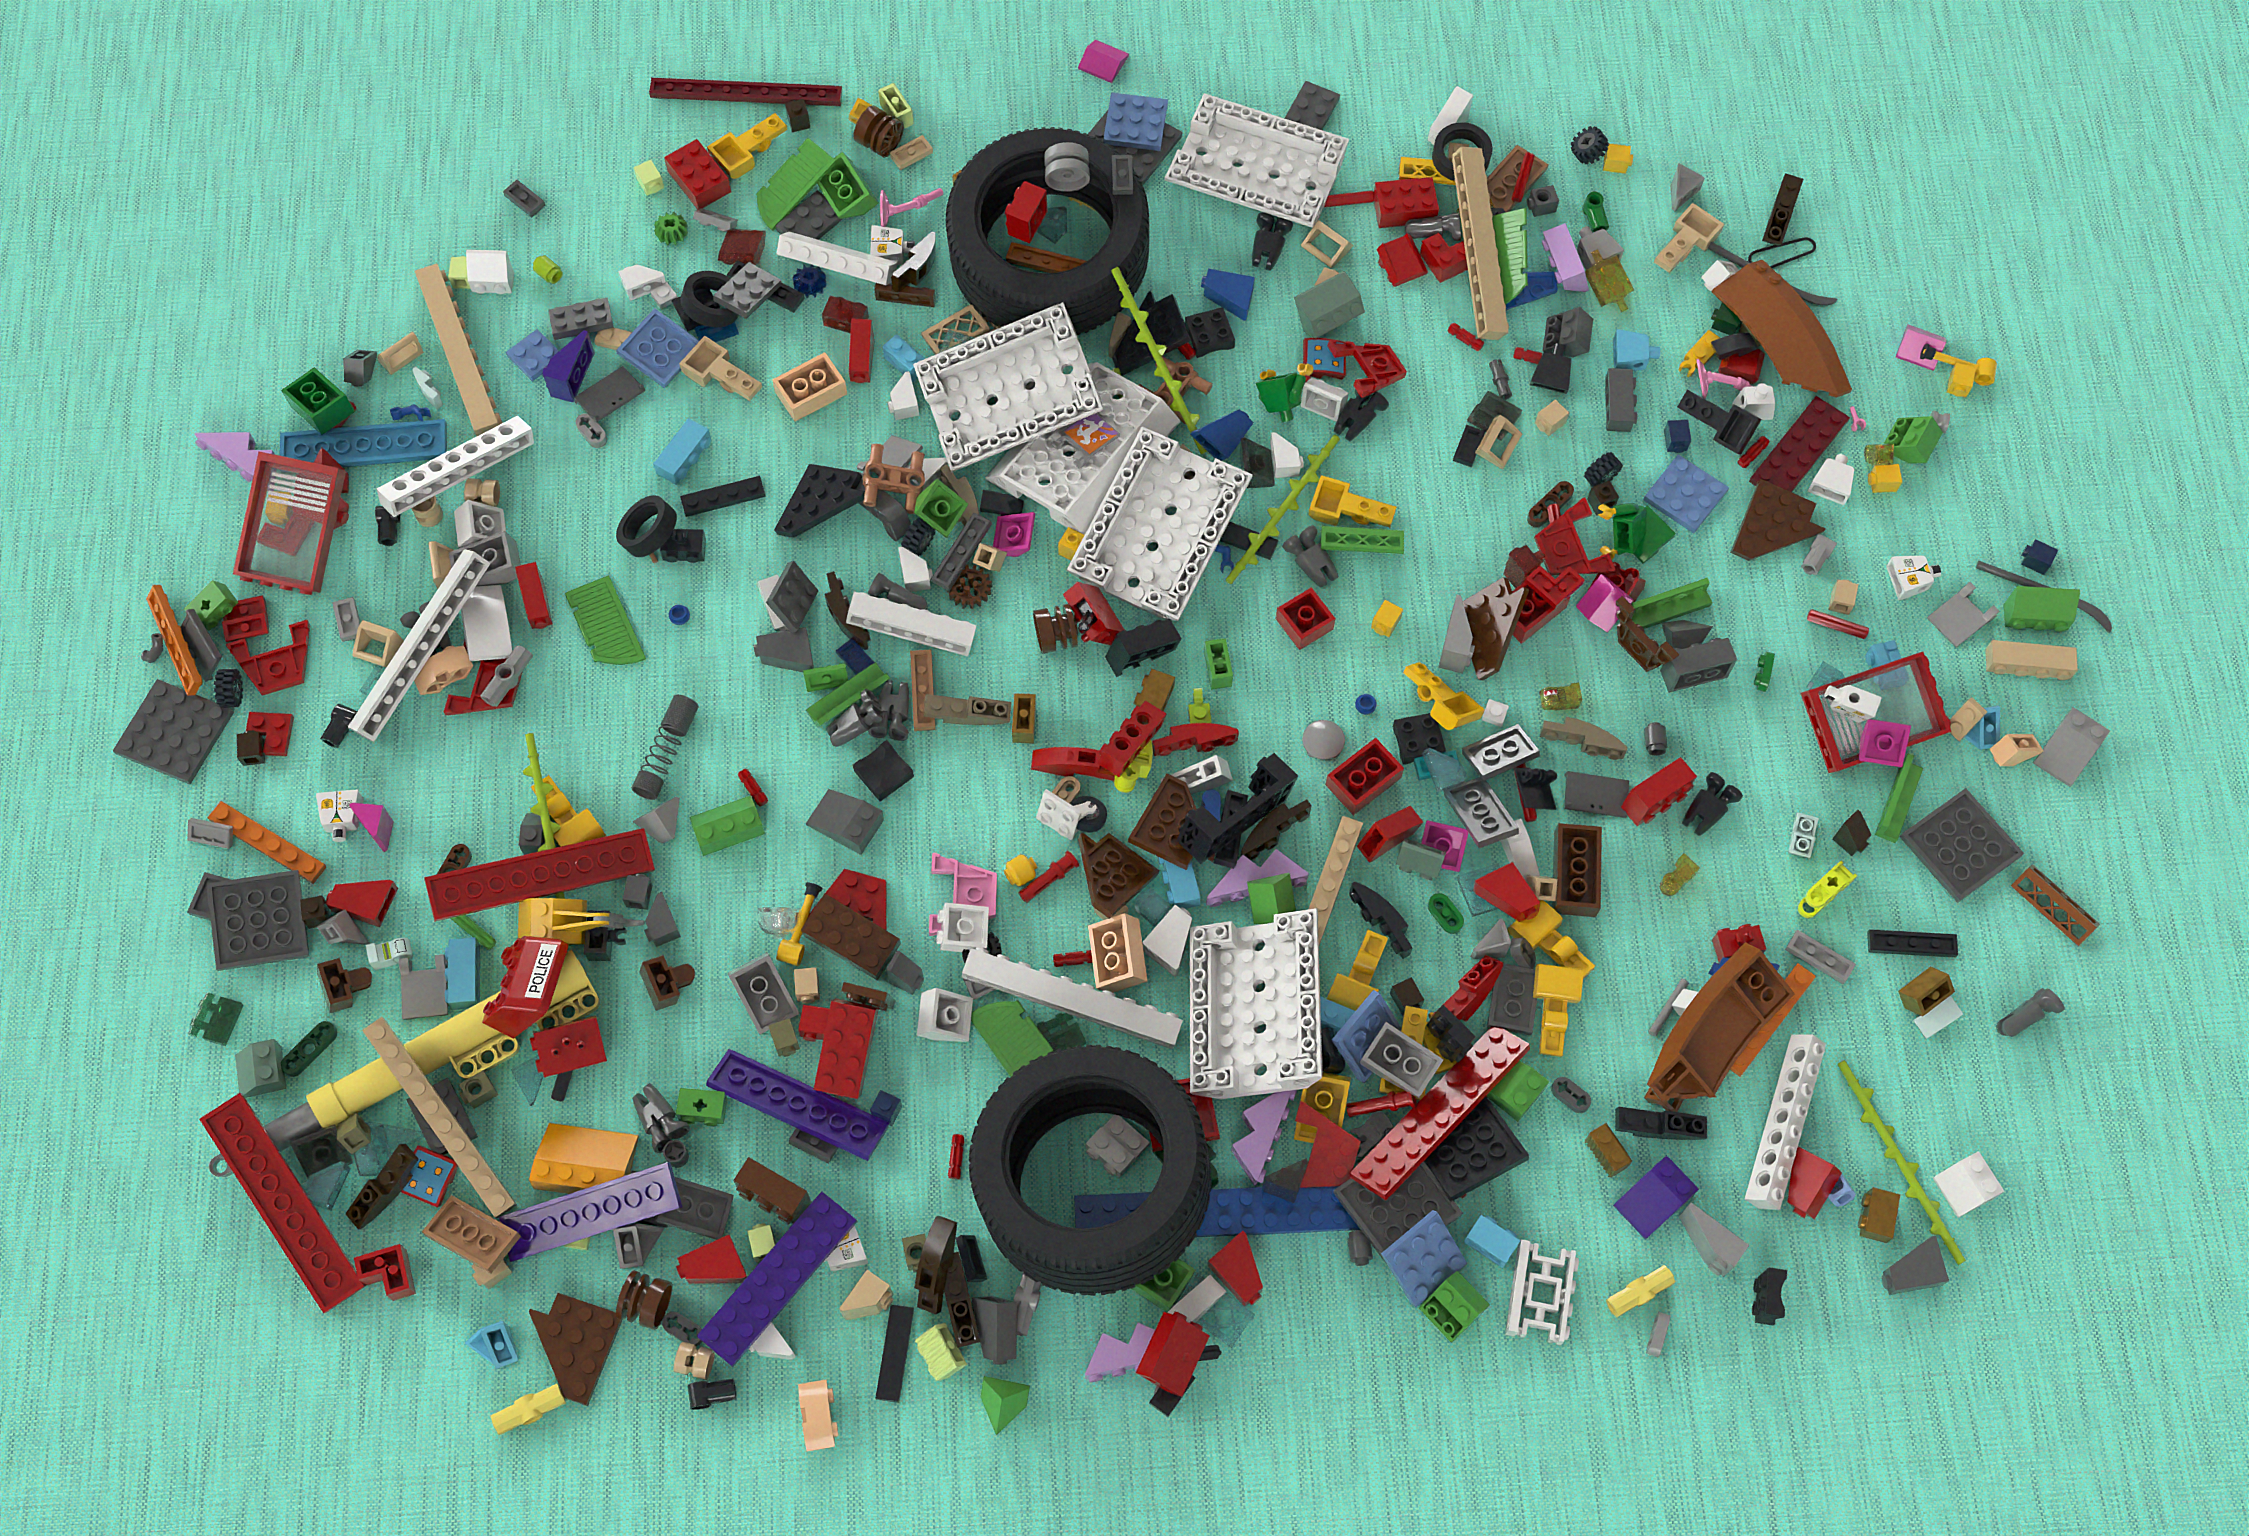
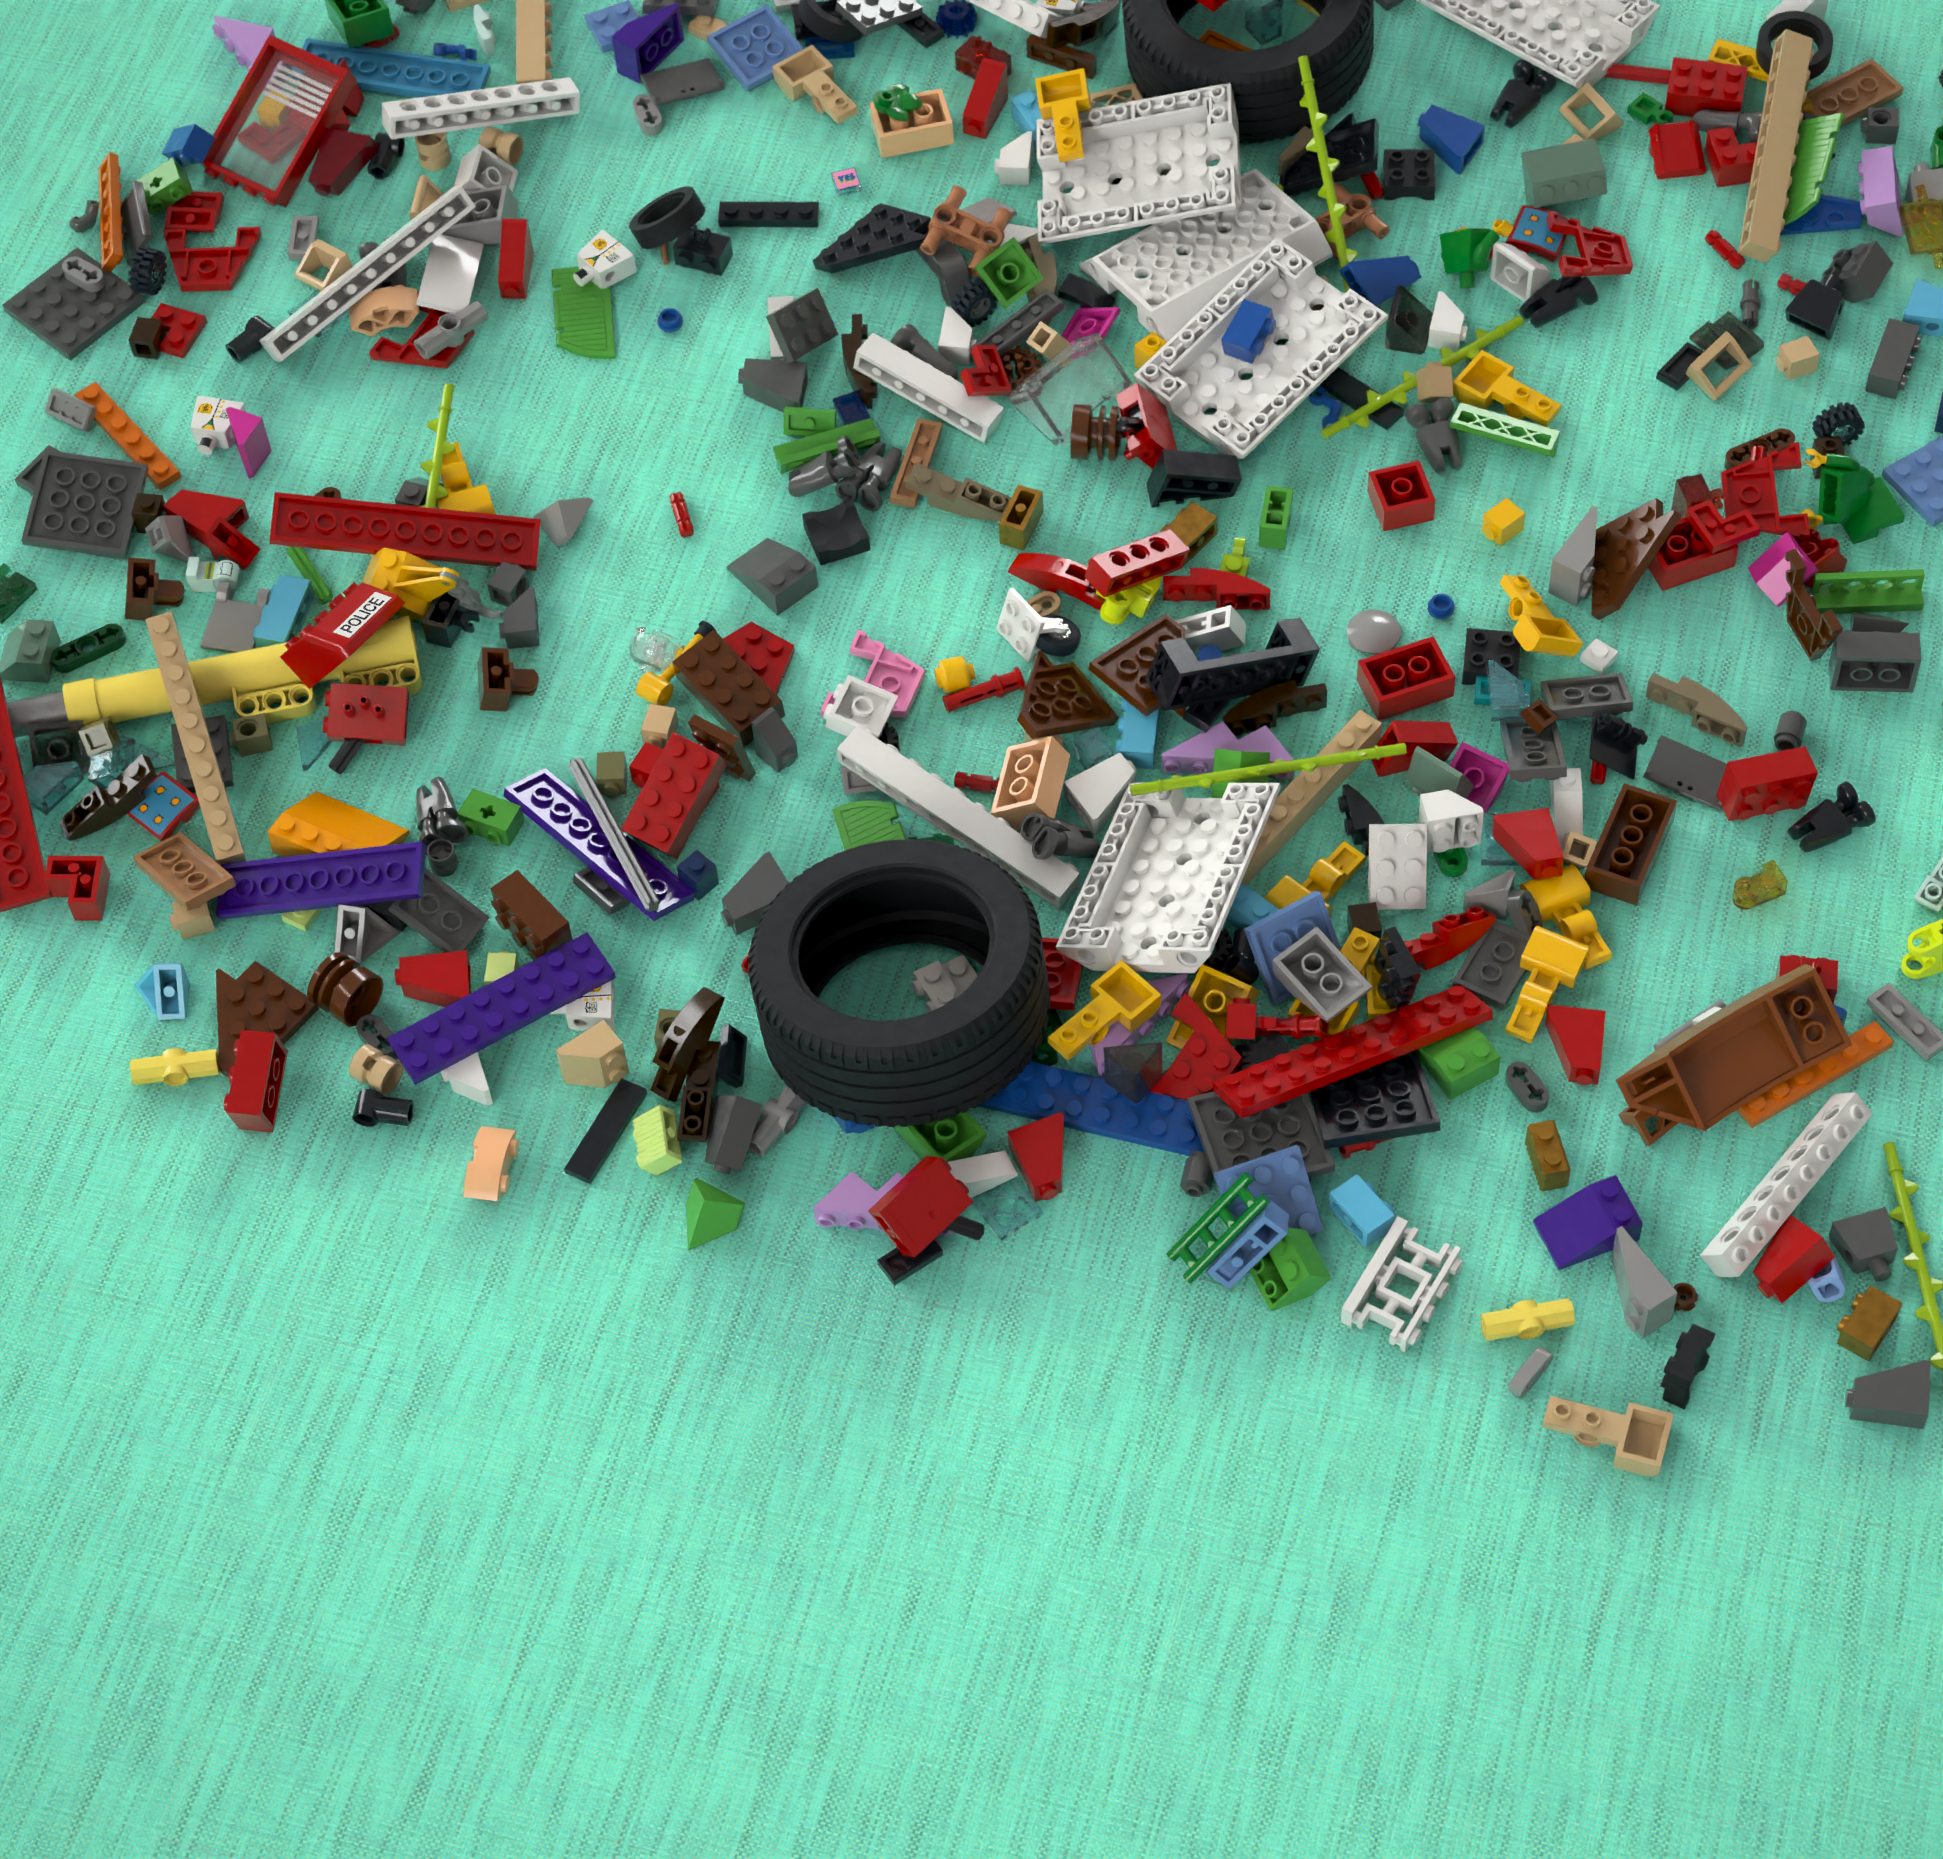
camera: 25 degrees right, 10 degrees down
(175, 701) = (81, 277): none -> light grey beam
(219, 563) = (188, 145): none -> blue brick
(353, 542) = (340, 160): none -> dark red slope
(395, 921) = (227, 540): none -> red slope
(603, 1408) = (256, 1081): none -> red brick
(607, 577) = (604, 262): none -> white torso
(676, 722) = (619, 426): dark grey piece -> none
(682, 451) = (740, 157): medium azure brick -> none
(727, 825) = (636, 546): bright green slope -> none
(763, 992) = (606, 718): light grey slope -> none
(774, 450) = (846, 181): none -> tile
(795, 375) = (896, 102): none -> green plate
(809, 1094) = (614, 835): none -> axle
(932, 344) = (1062, 98): none -> yellow plate
(940, 1111) = (752, 894): none -> dark grey slope
(944, 1016) = (804, 799): white slope -> none
(958, 602) = (989, 376): none -> red plate
(1017, 591) = (1077, 374): none -> clear windscreen
(1086, 436) = (1207, 239): flag -> none
(1146, 512) = (1248, 331): none -> blue brick
(1157, 994) = (1058, 838): none -> dark grey piece
(1256, 1123) = (1117, 996): none -> yellow plate
(1296, 513) = (1434, 382): none -> tan brick
(1303, 887) = (1279, 766): none -> lime plant
(1353, 1112) = (1242, 1020): none -> red brick
(1368, 229) = (1648, 109): none -> green plate
(1411, 1294) = (1234, 1225): none -> green bar
(1418, 943) = (1397, 866): none -> white plate
(1426, 1295) = (1250, 1245): none -> medium blue slope
(1443, 895) = (1450, 821): none -> white slope
(1476, 783) = (1539, 716): none -> reddish brown plate
(1523, 177) = (1864, 92): red axle -> none
(1561, 697) = (1686, 658): clear yellow leg -> none
(1596, 1047) = (1577, 1040): none -> red slope
(1661, 1125) = (1624, 1148): black slope -> none
(1746, 1231) = (1687, 1291): none -> reddish brown plate
(1752, 1362) = (1638, 1435): none -> tan plate
(1855, 1150) = (1866, 1242): none -> dark grey torso

